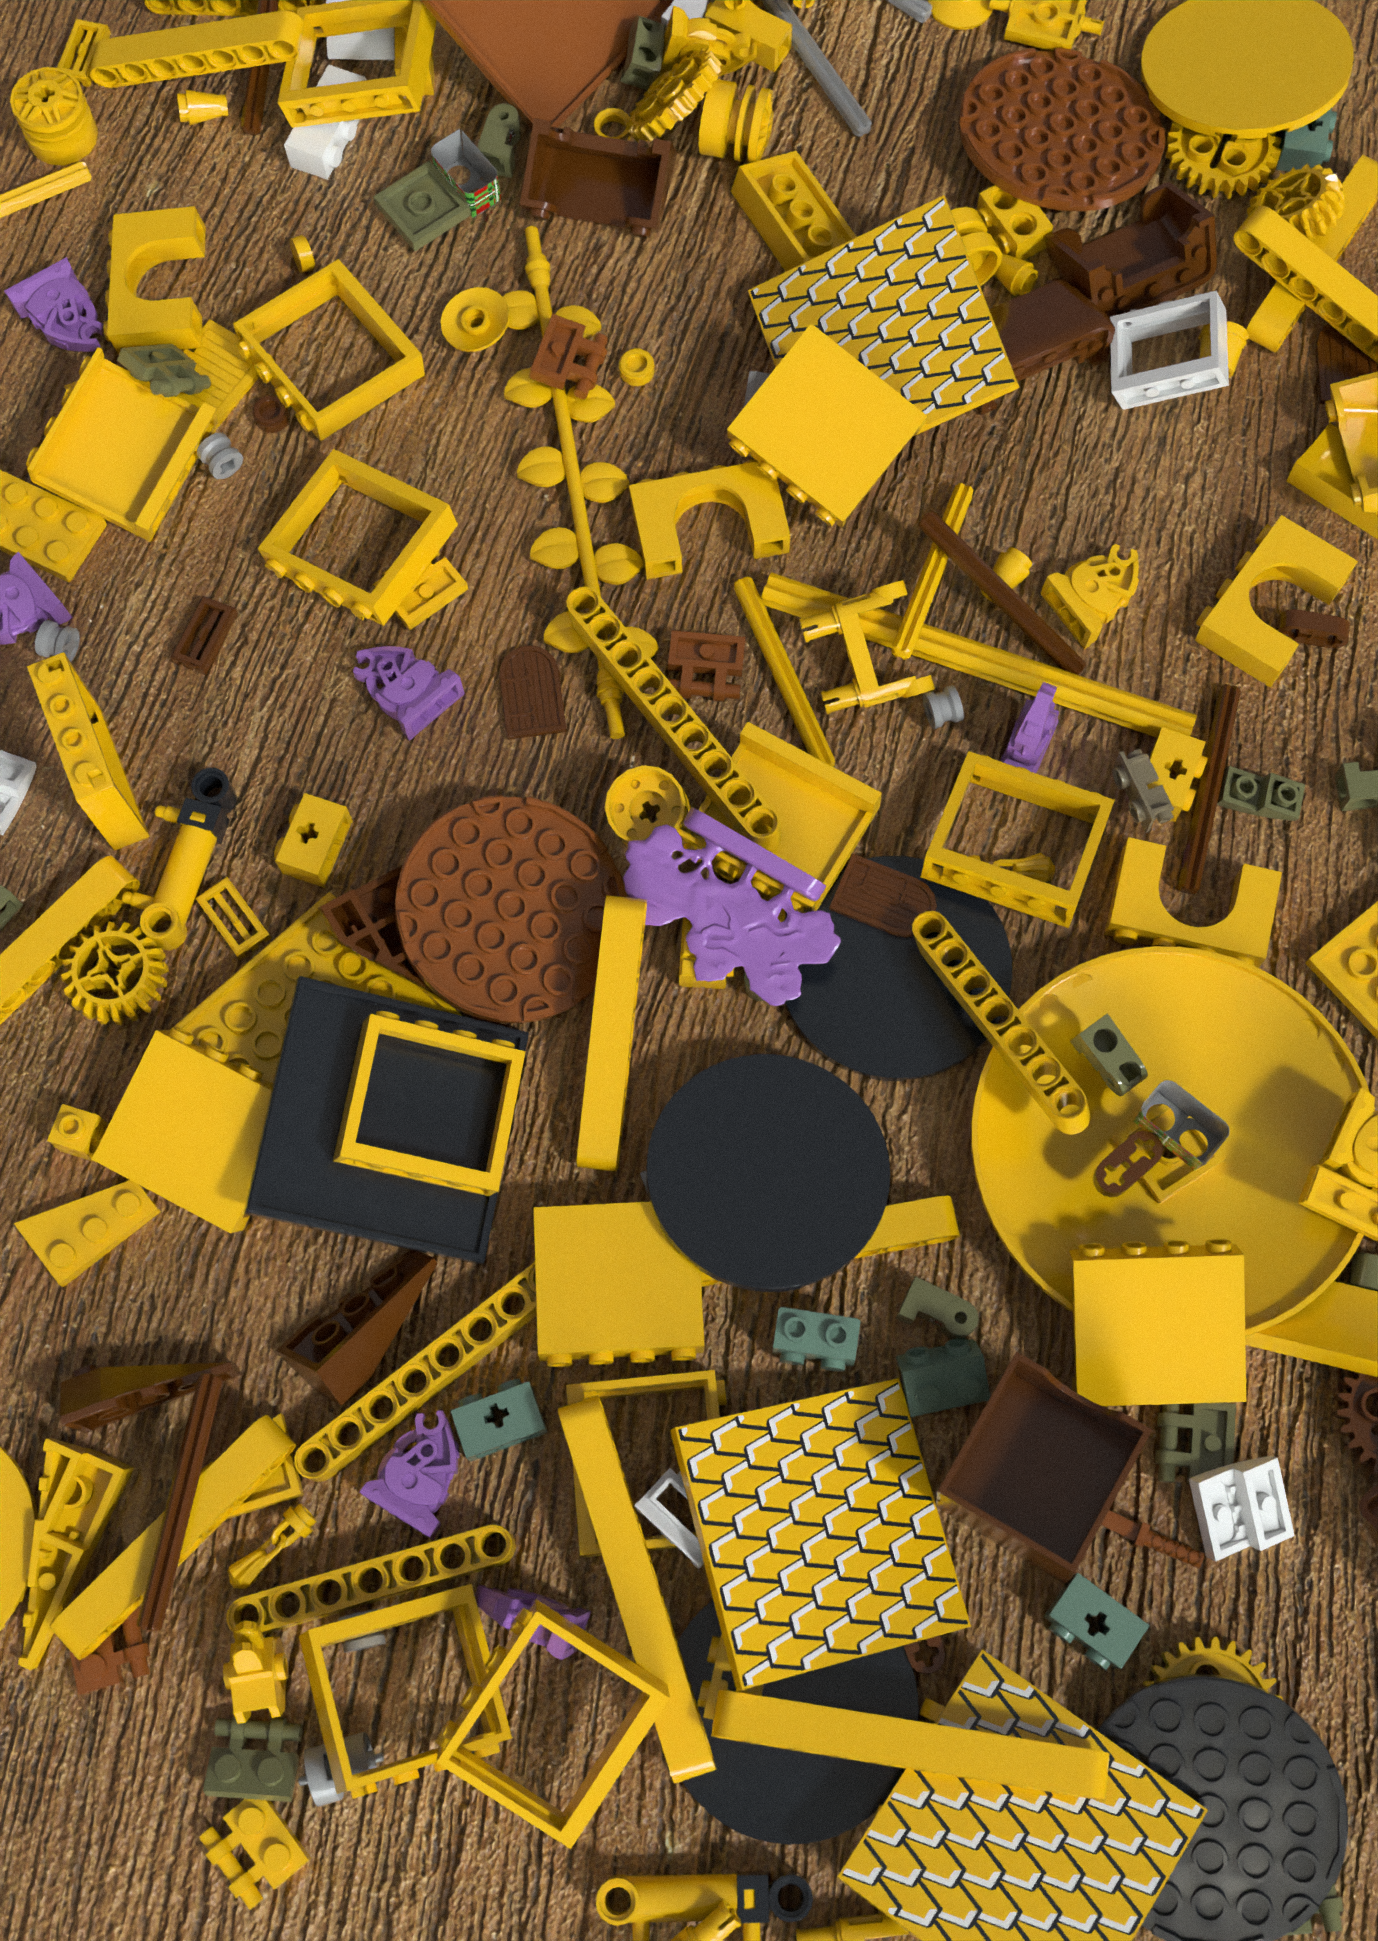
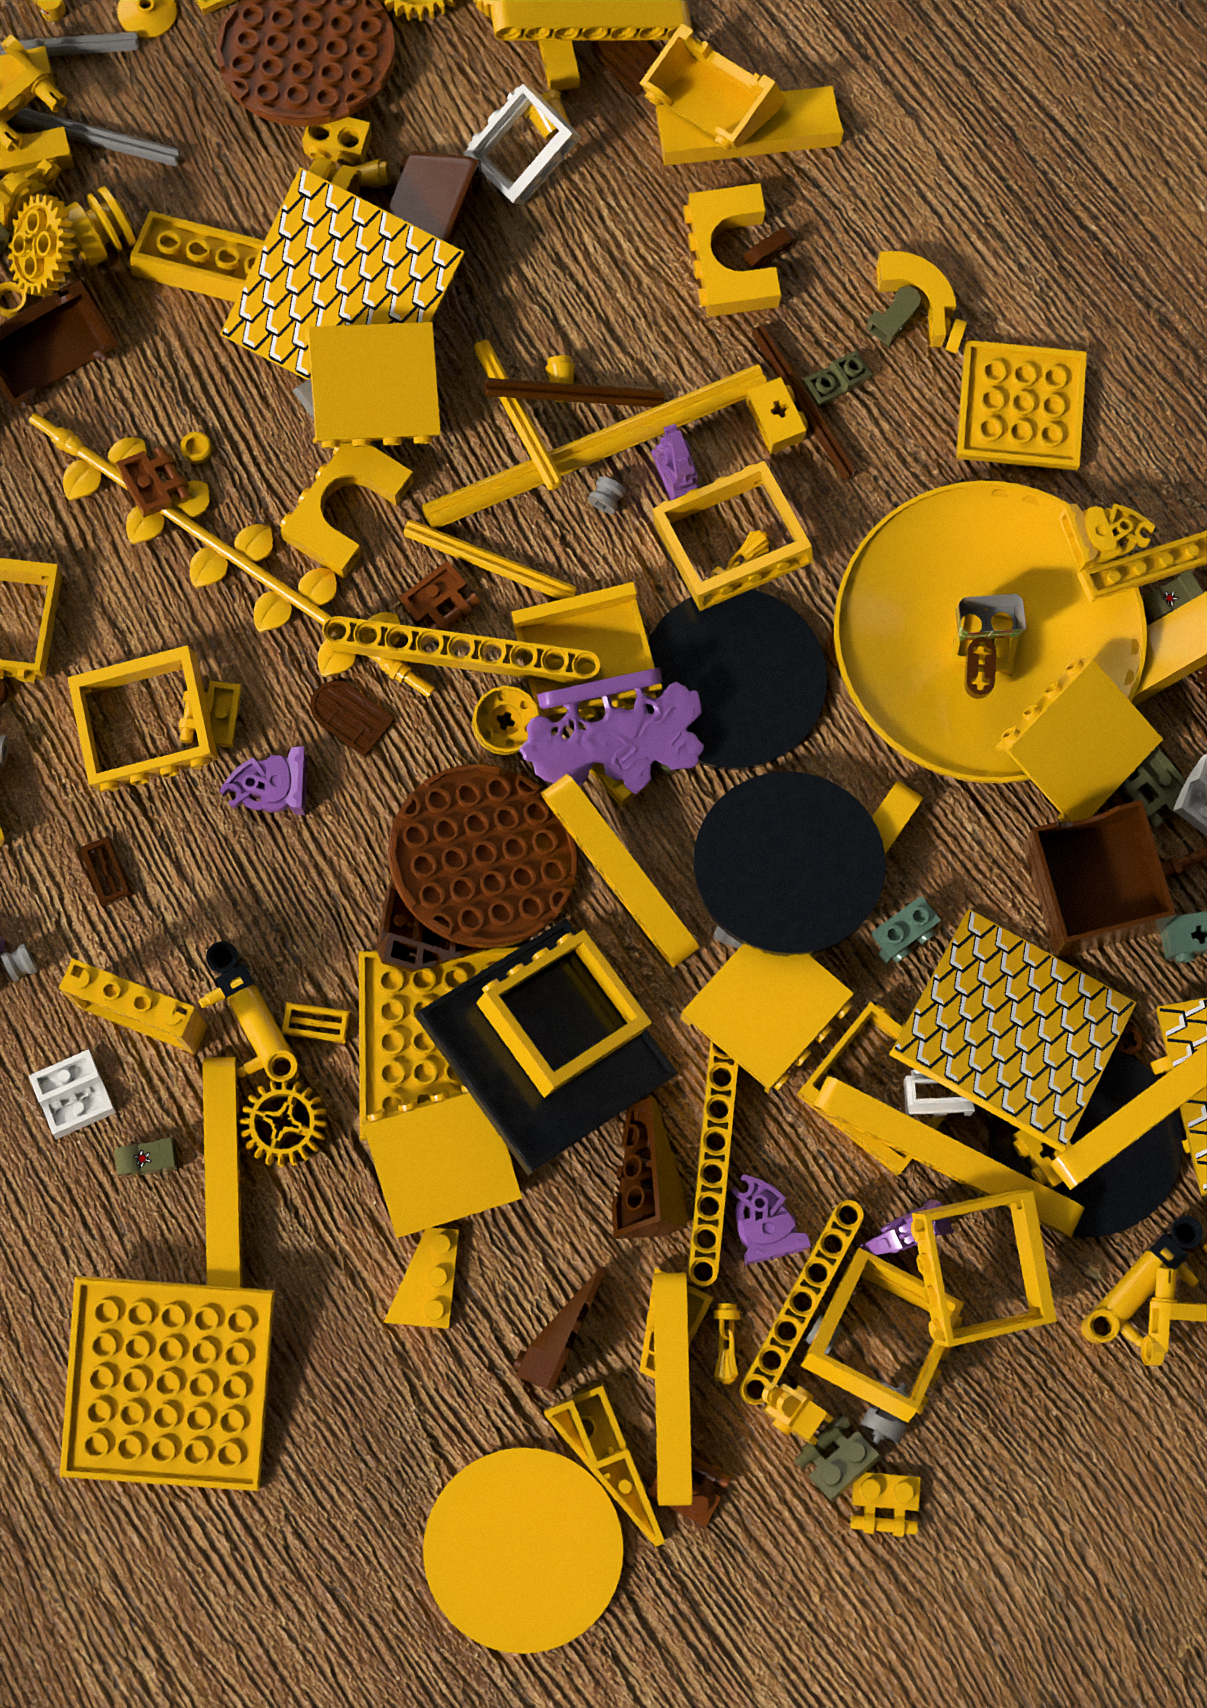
camera: 55 degrees left, 5 degrees up
(77, 1132) = (367, 1233): yellow brick -> none
(179, 1502) = (661, 1363): reddish brown axle -> none
(315, 859) = (315, 911): yellow brick -> none
(468, 310) = (52, 500): yellow dish -> none
(485, 1438) = (778, 1167): sand green brick -> none
(864, 686) = (501, 494): yellow connector -> none
(881, 896) = (689, 643): reddish brown window -> none
(943, 1376) = (991, 883): sand green bracket -> none
(951, 1313) = (957, 846): olive leg -> none
(1003, 1036) = (845, 661): yellow beam -> none
(1092, 592) = (624, 344): yellow piece -> none
(1111, 1055) = (912, 614): olive leg -> none
(1140, 917) = (841, 516): yellow arch -> none
(1144, 803) = (785, 447): dark tan hinge -> none
(1146, 261) = (441, 94): reddish brown windscreen -> none

